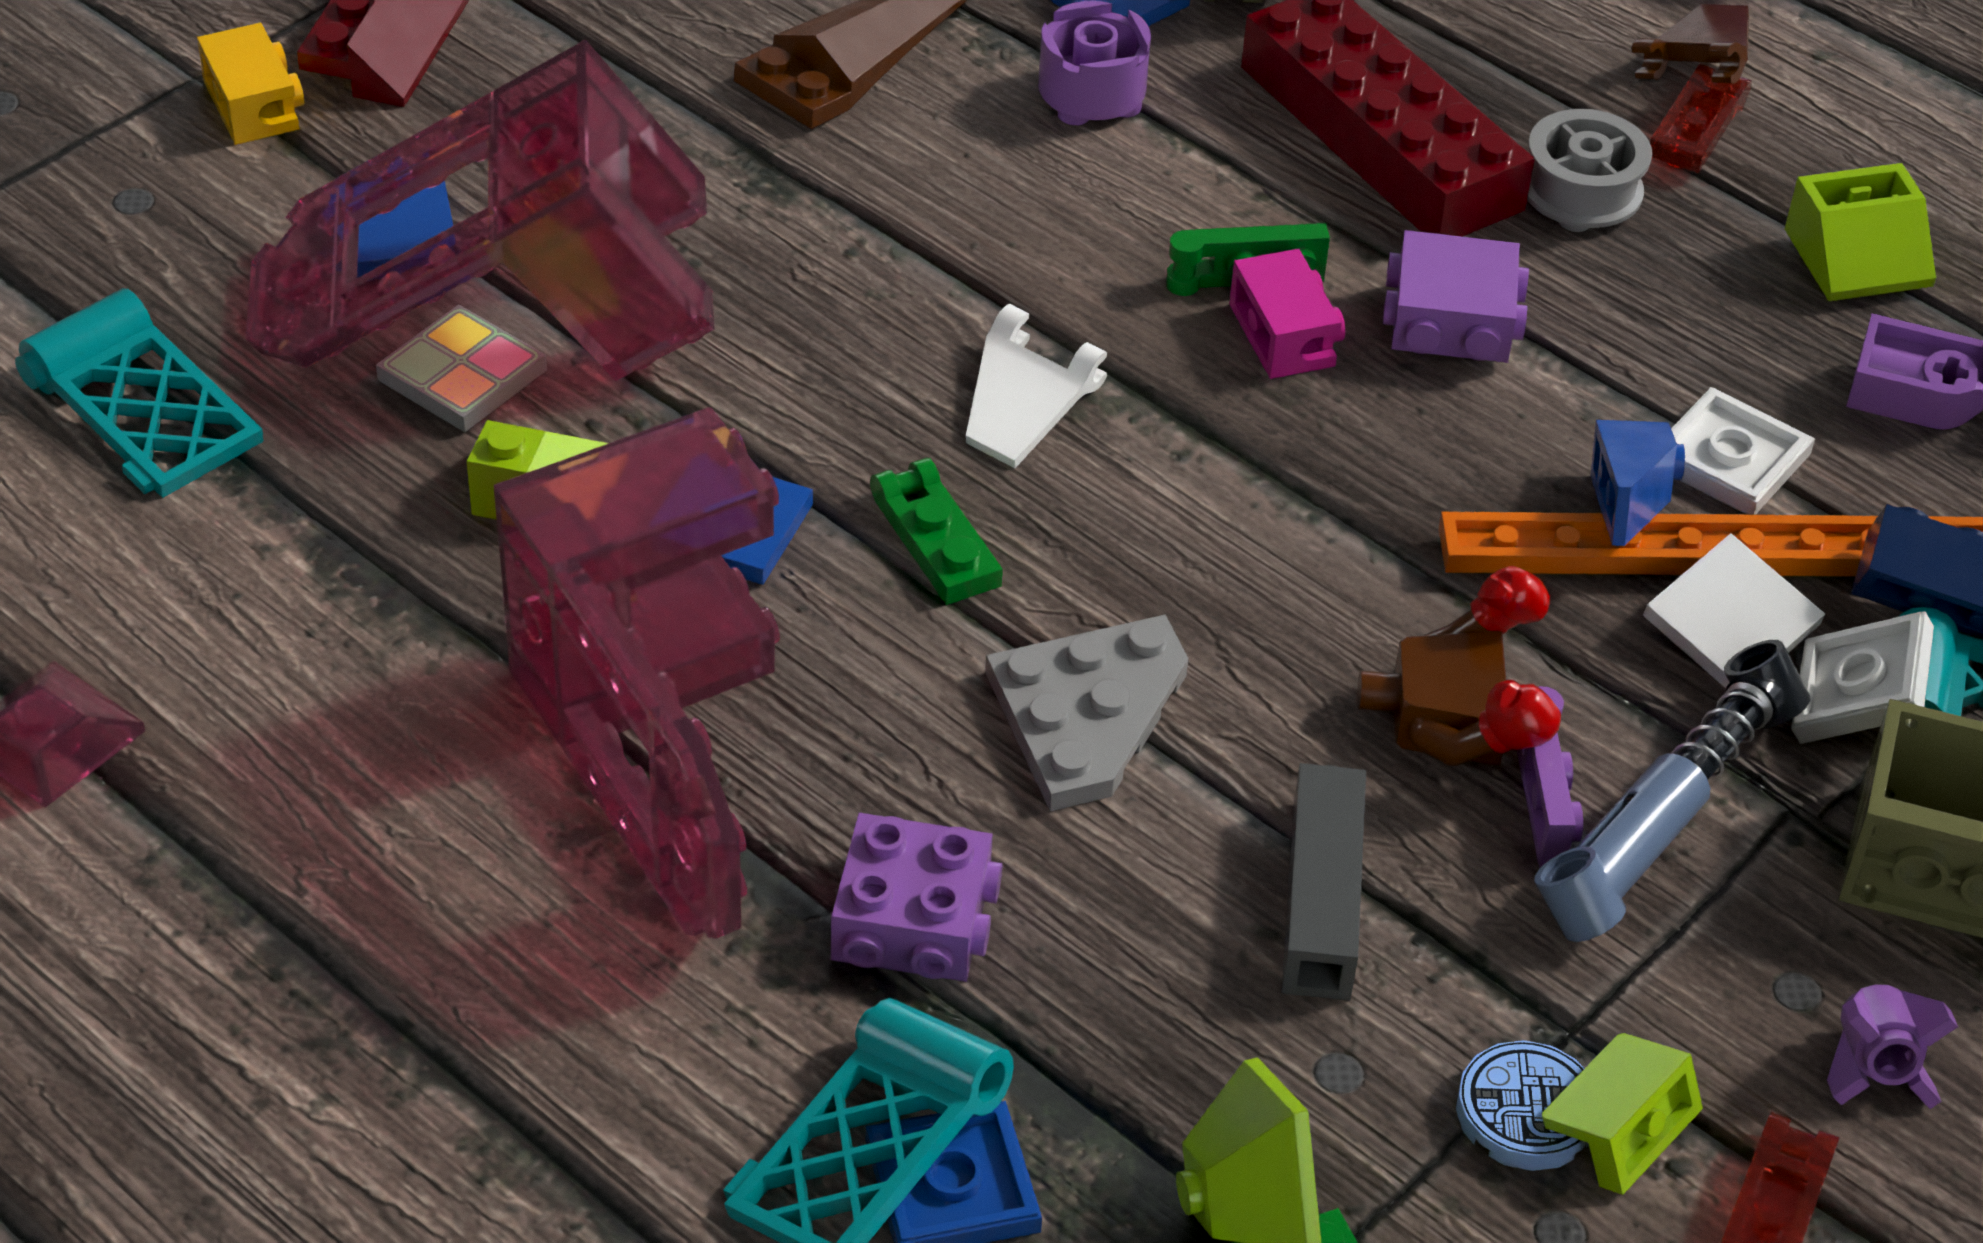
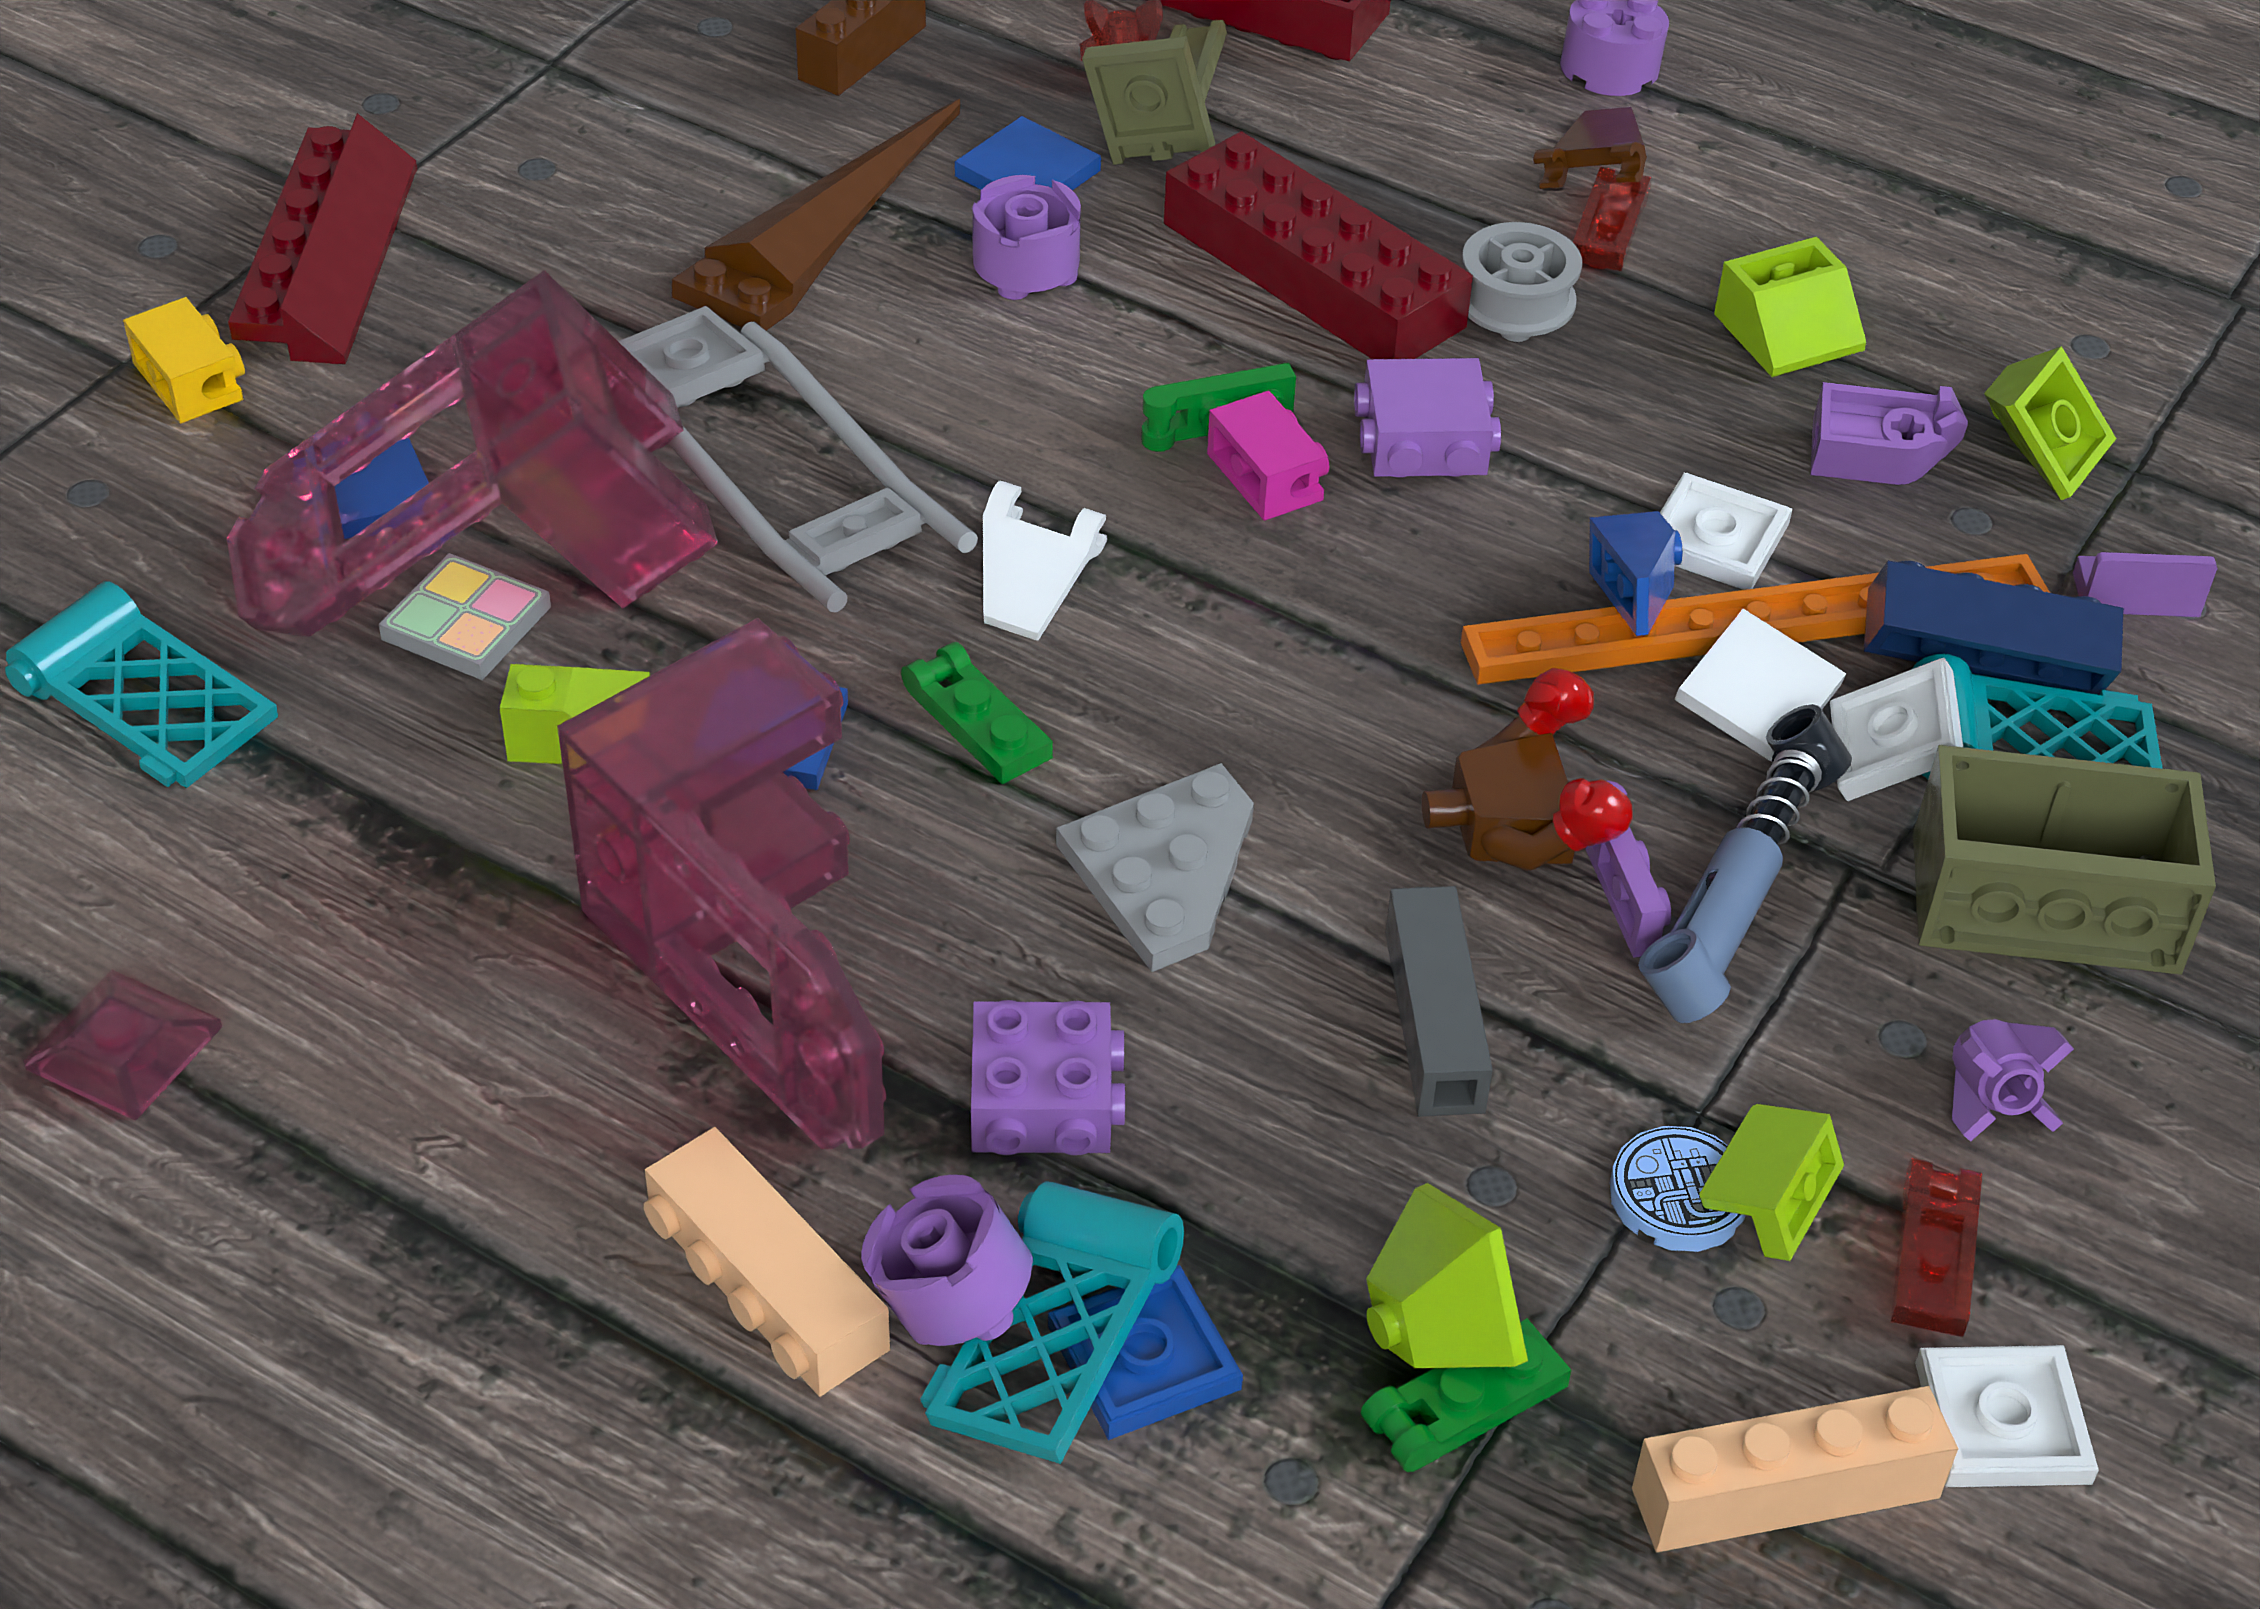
camera: 10 degrees left, 0 degrees up
(604, 1034) = (766, 1262): none -> light nougat brick
(753, 141) = (706, 354): none -> light grey plate
(774, 1061) = (948, 1262): none -> medium lavender brick

